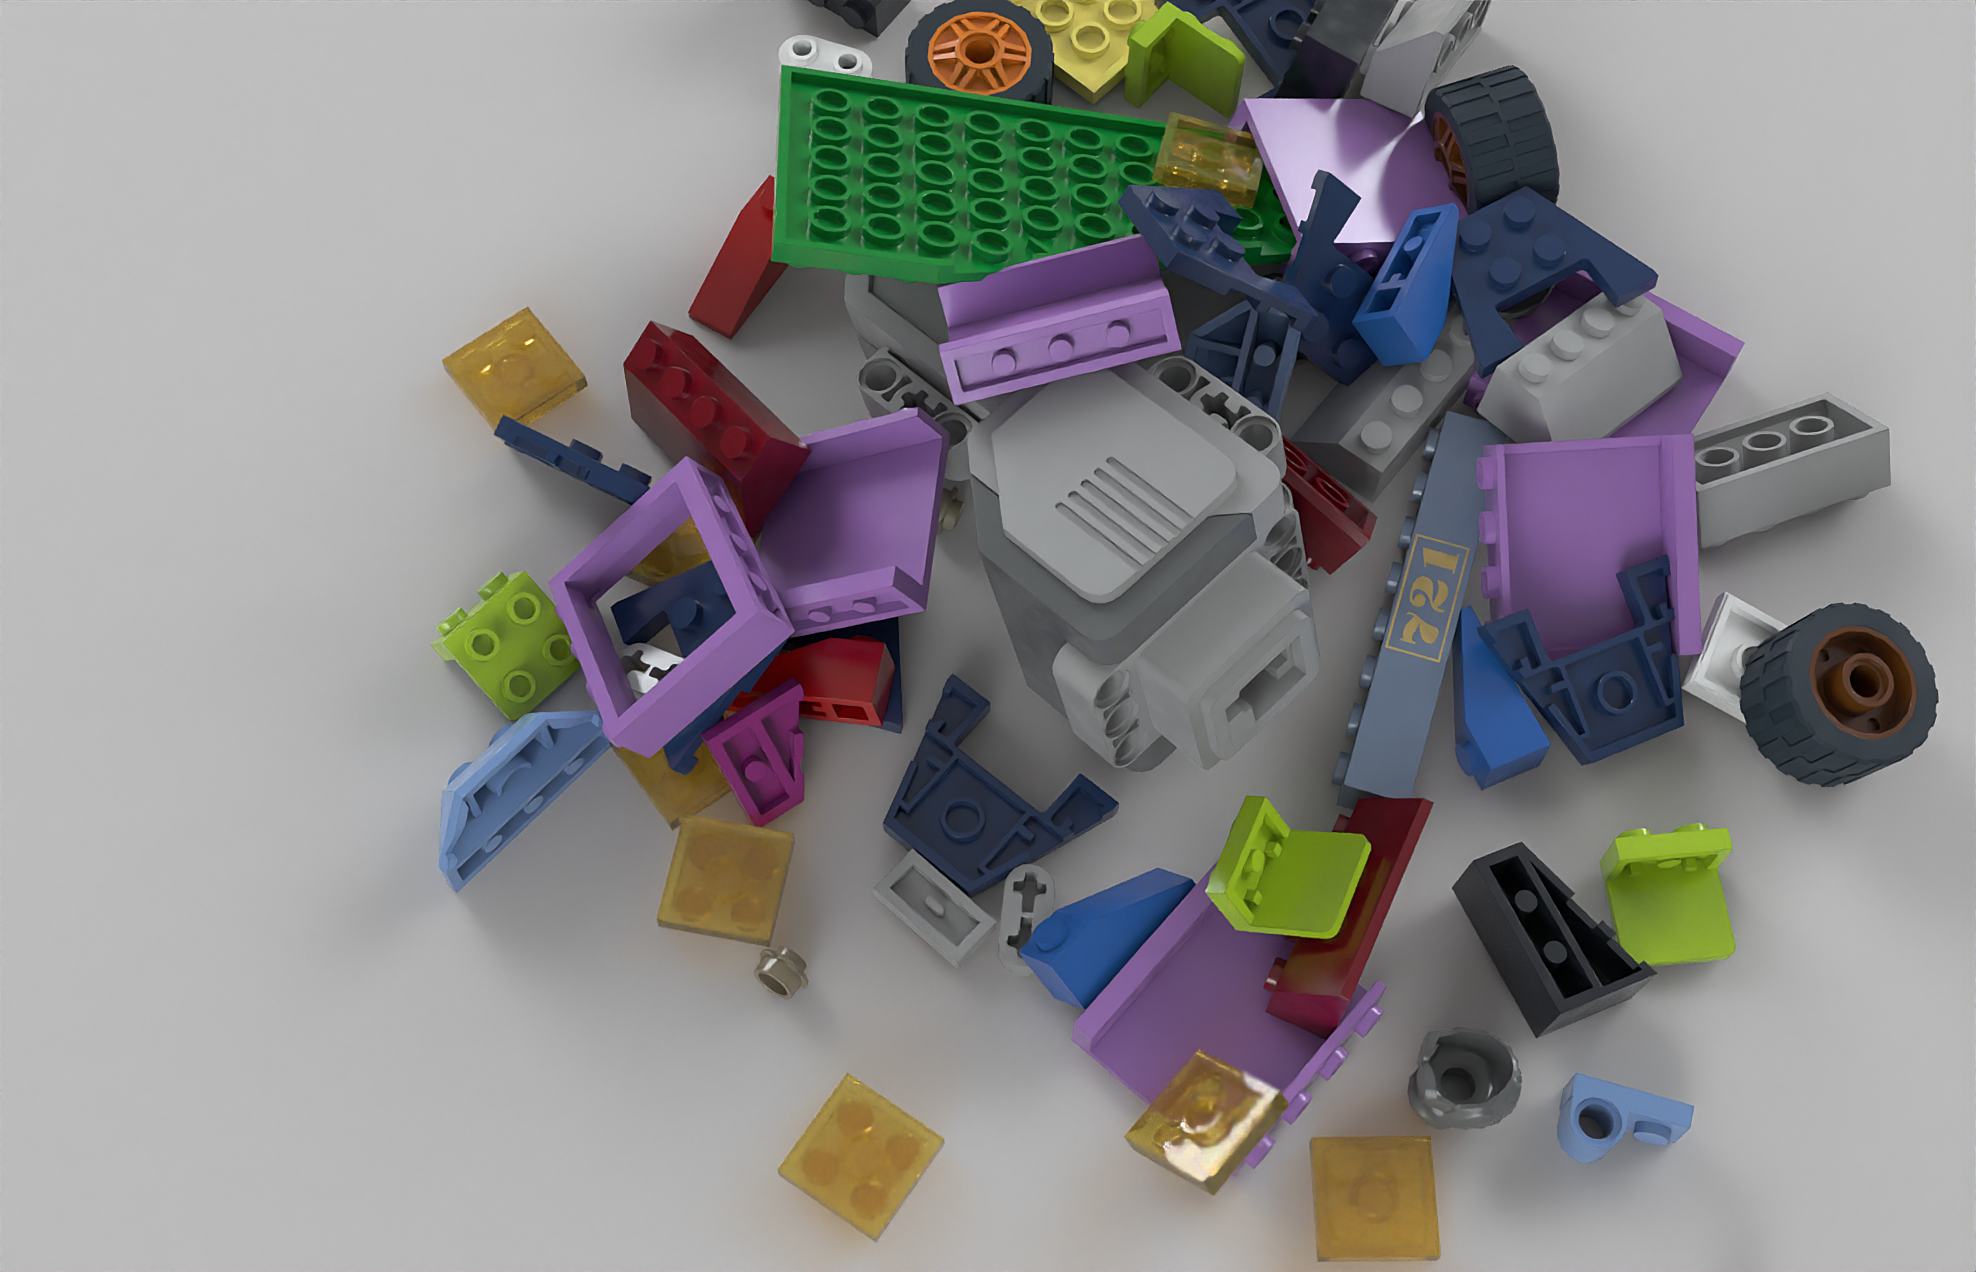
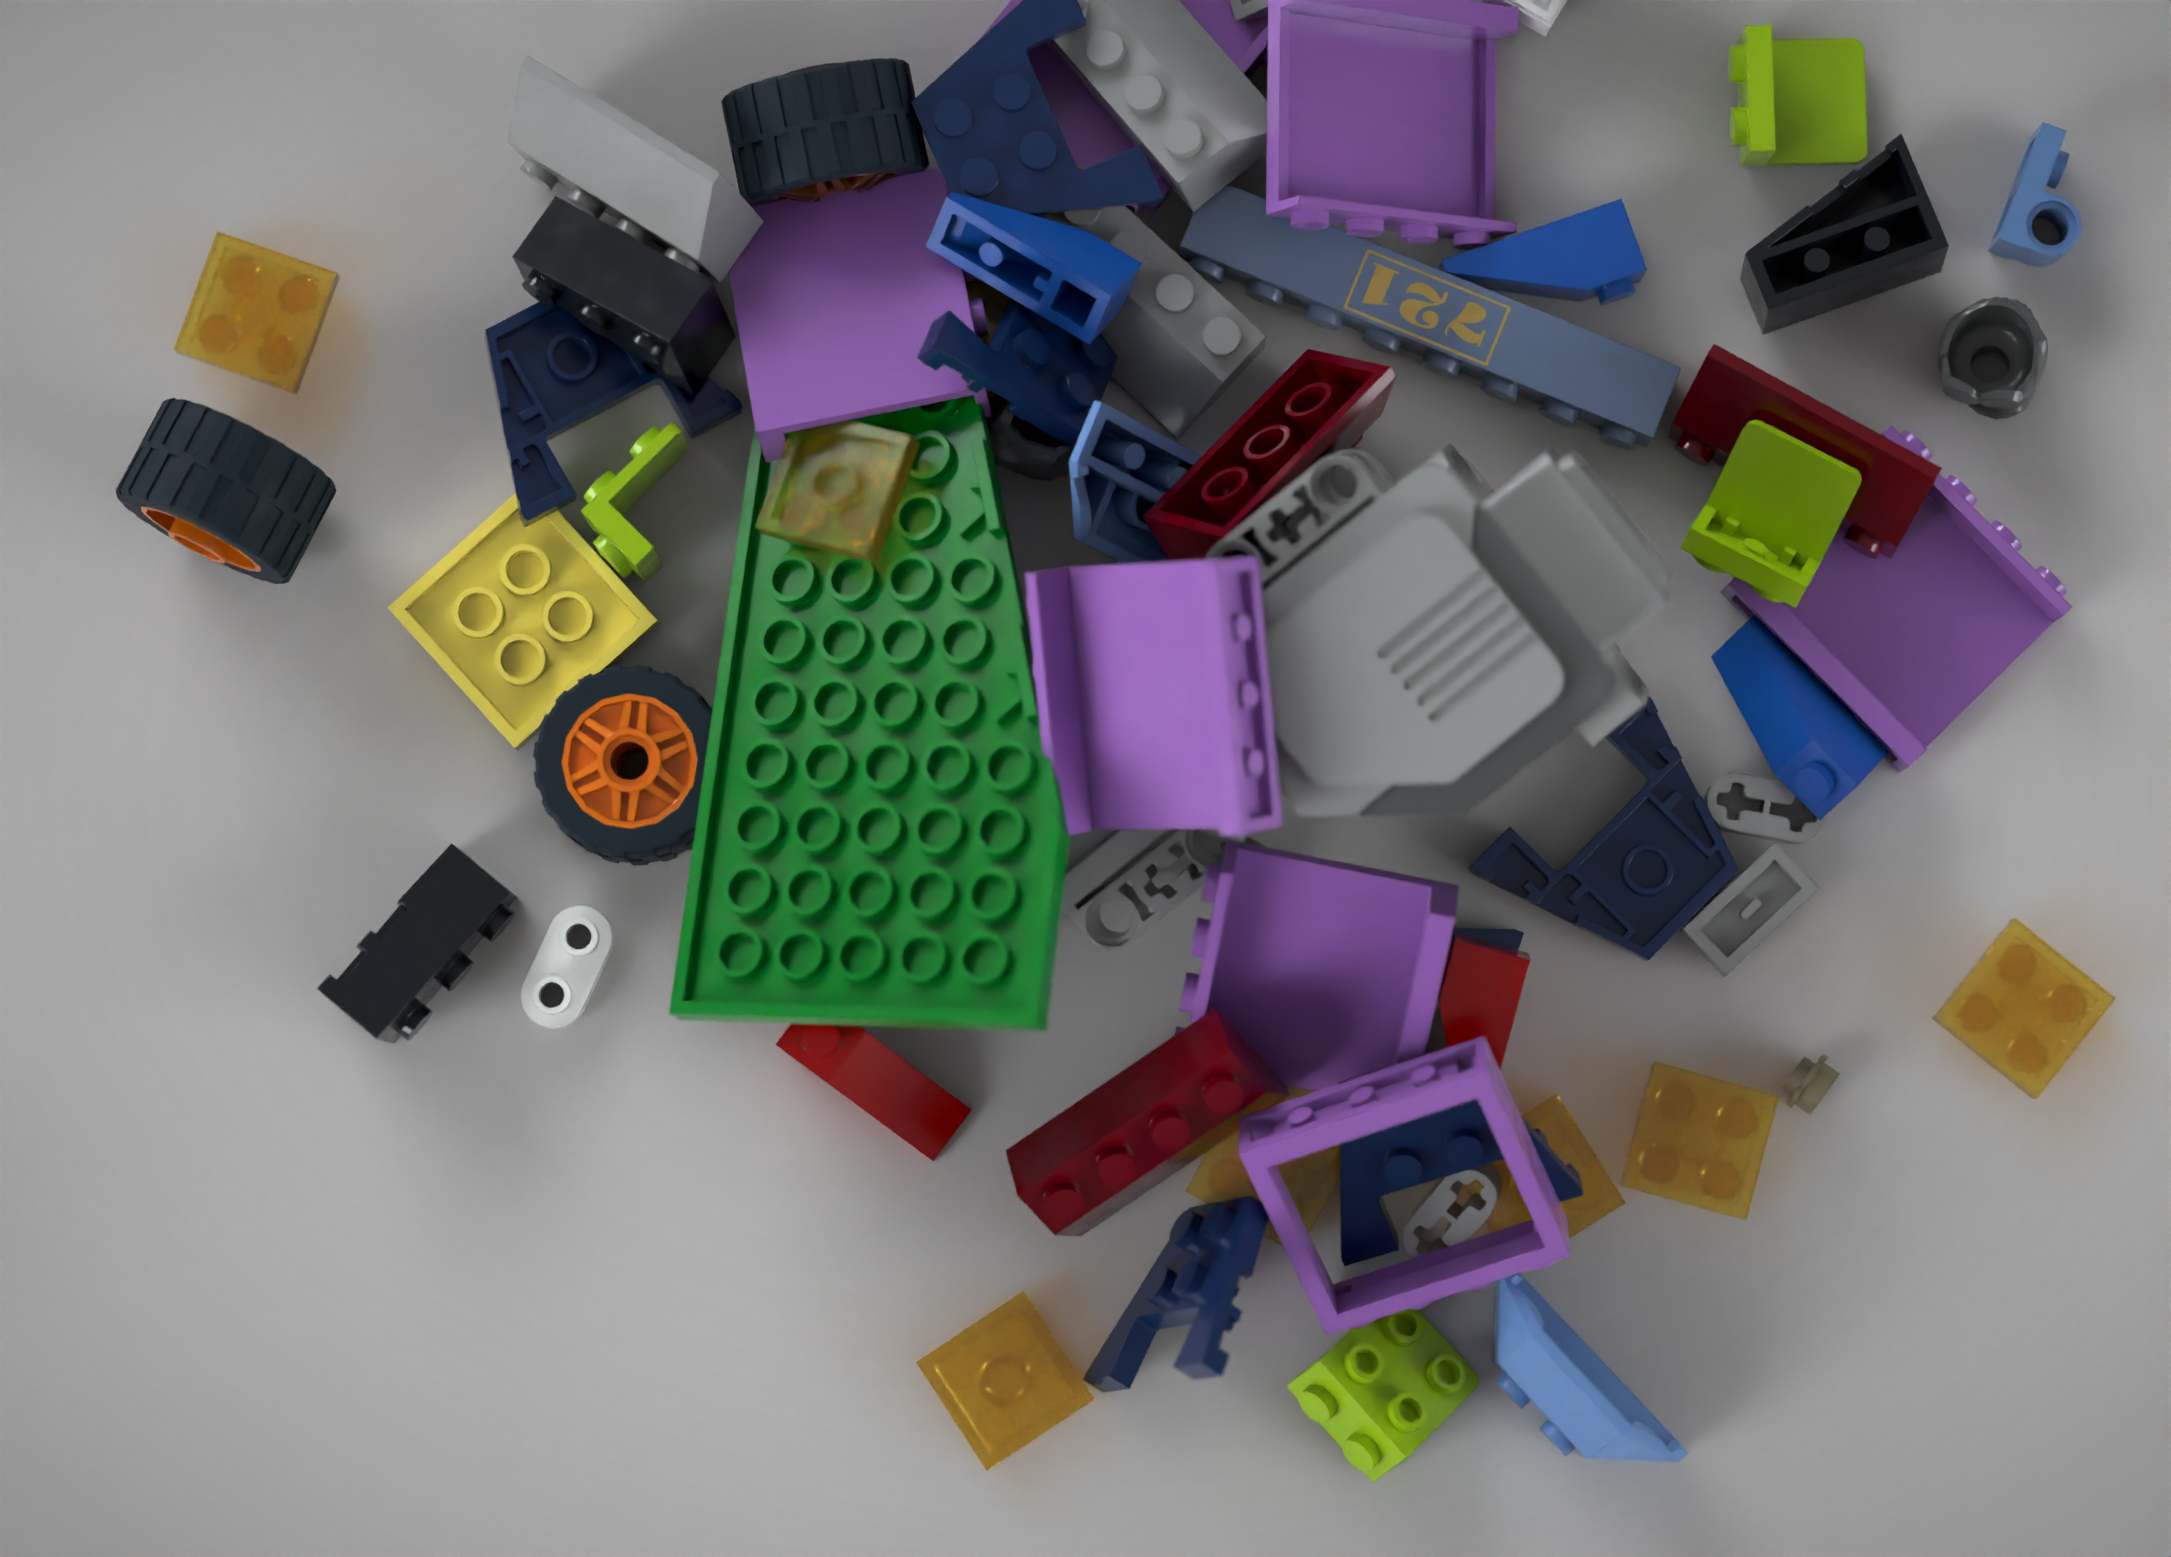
camera: 85 degrees left, 20 degrees up
(762, 753) = (1565, 1089): magenta wing -> none
(1193, 238) = (1043, 524): dark blue wing -> none
(1206, 1121) = (2025, 637): clear yellow plate -> none
(1374, 1199) = (2098, 470): clear yellow plate -> none
(1608, 691) = (1549, 115): dark blue wing -> none

